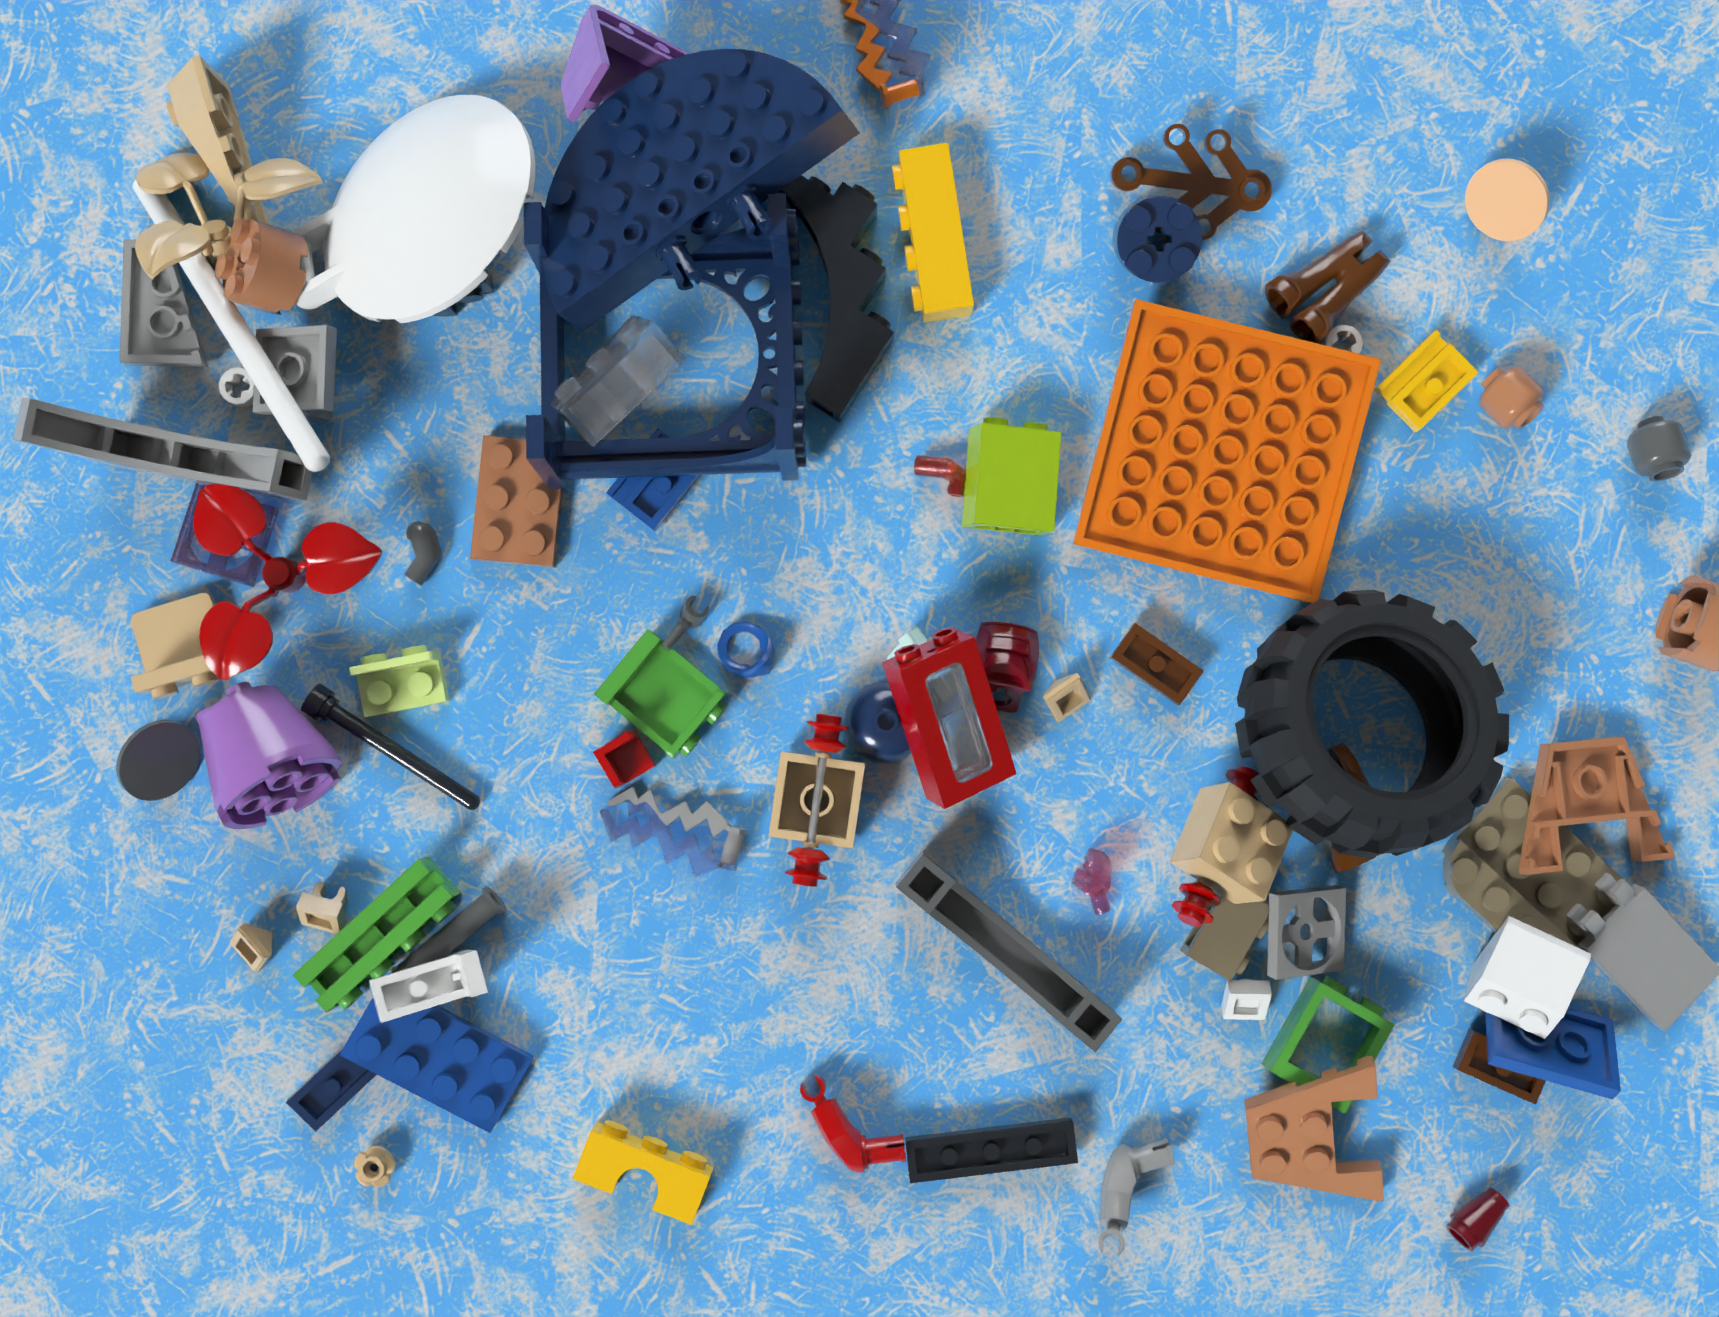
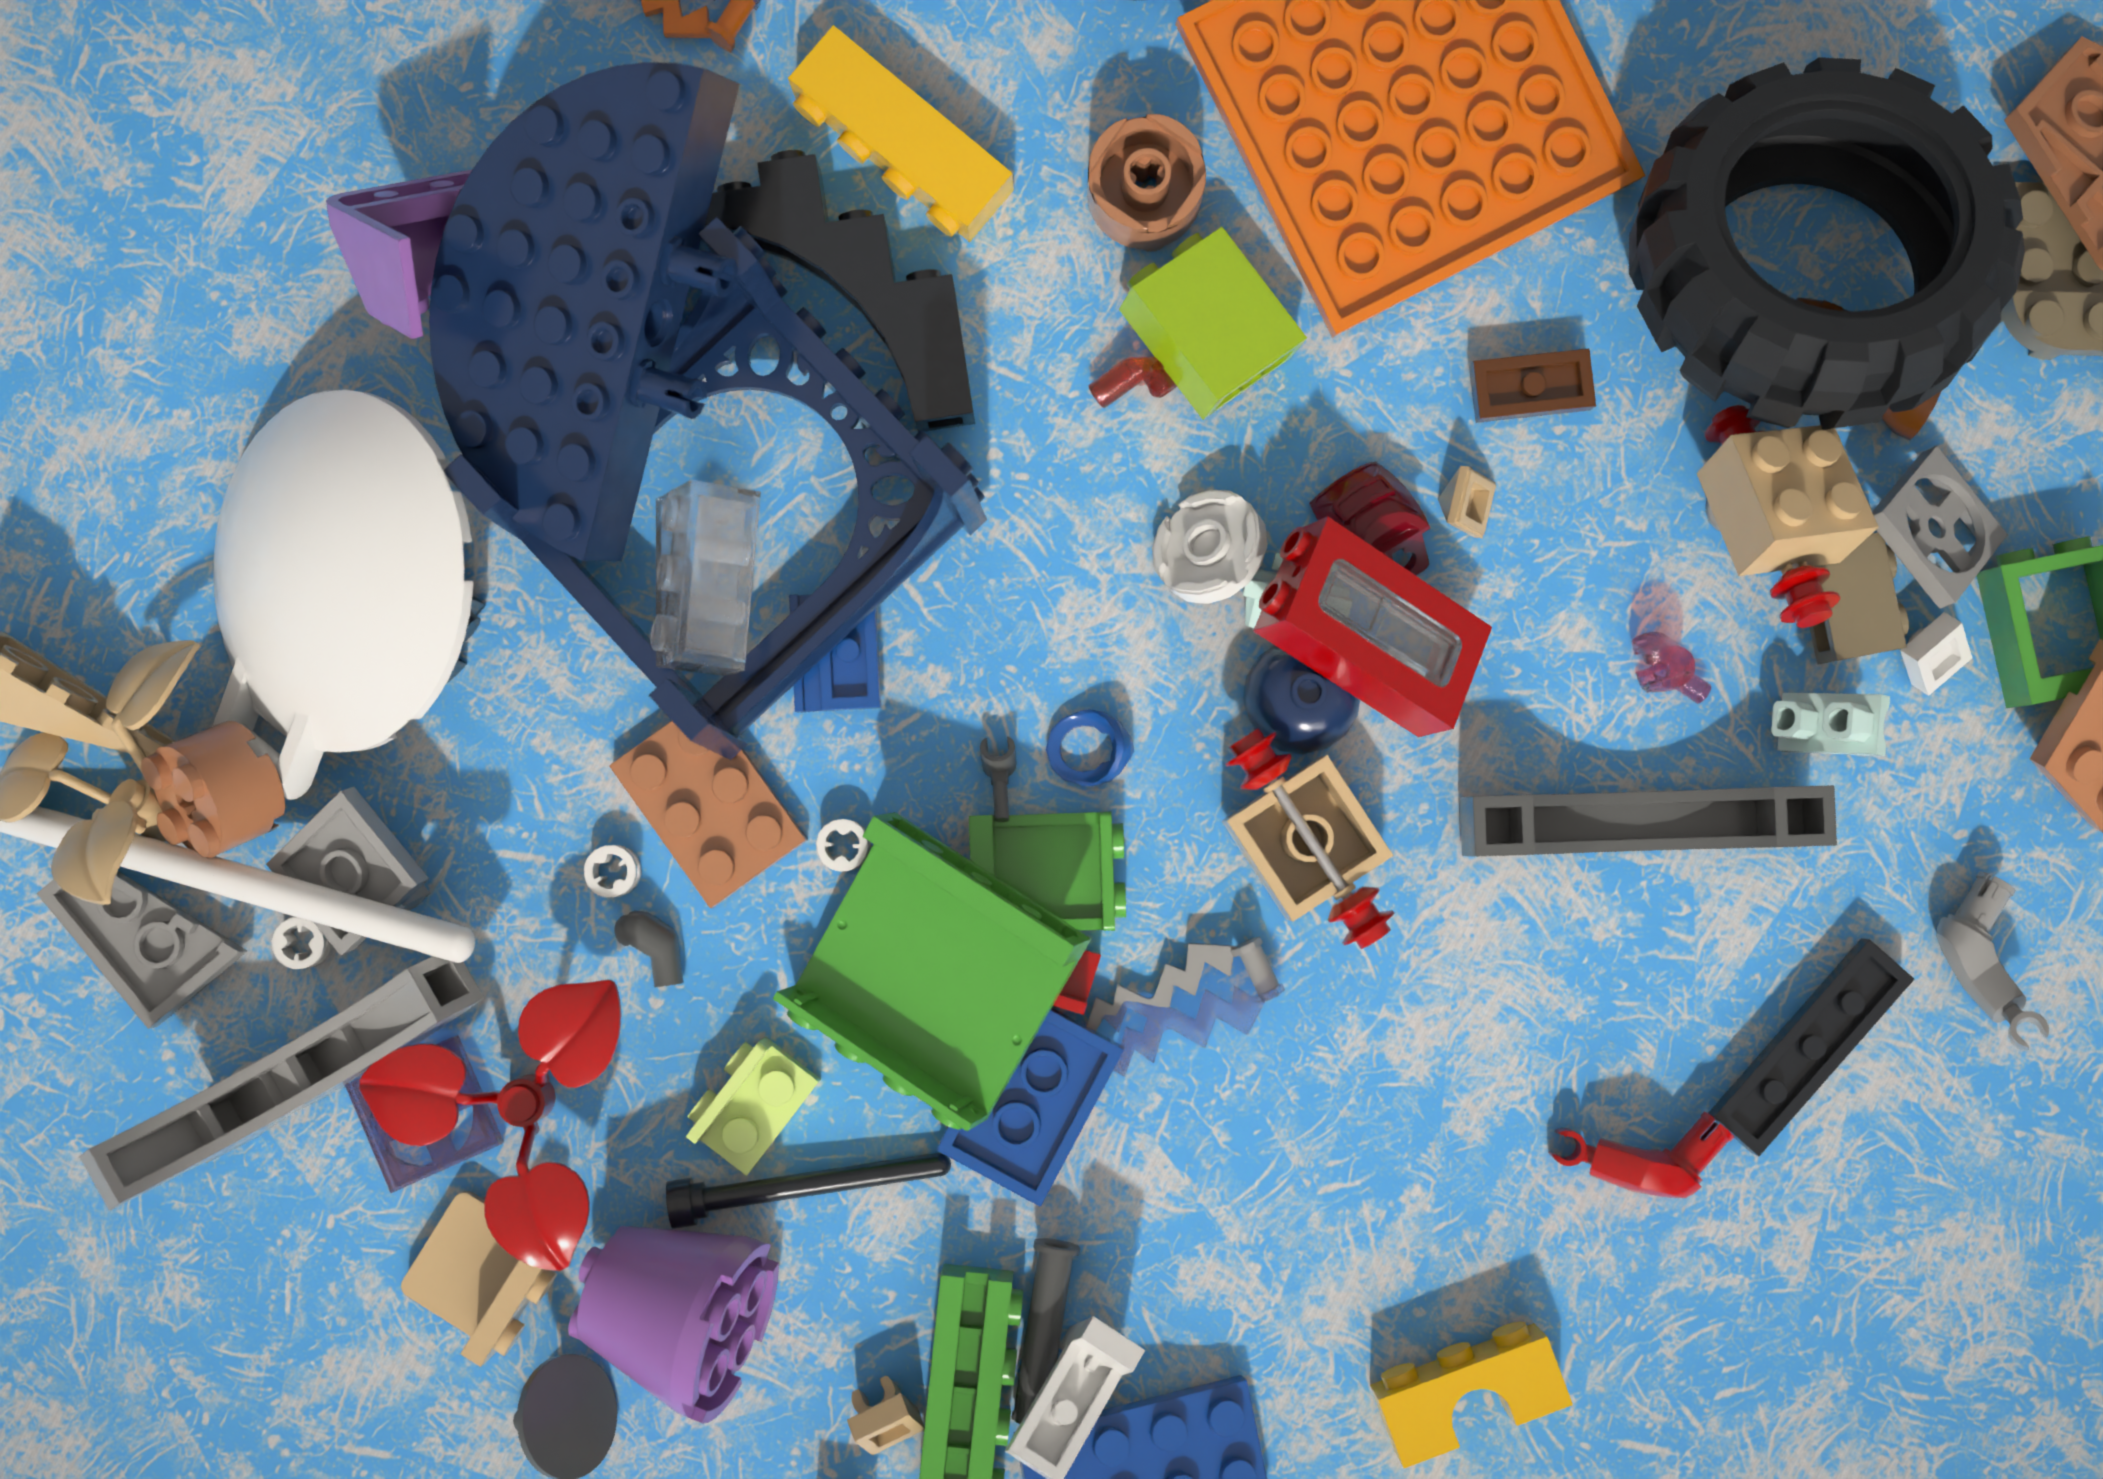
camera: 40 degrees left, 0 degrees up
(440, 481) = (604, 855): none -> white bush
(549, 809) = (1039, 1109): none -> blue plate
(555, 696) = (934, 973): none -> bright green panel
(562, 596) = (844, 827): none -> white bush
(904, 598) = (1210, 546): none -> white tile
(1054, 353) = (1133, 152): none -> nougat brick
(1153, 985) = (1831, 723): none -> light aqua hips

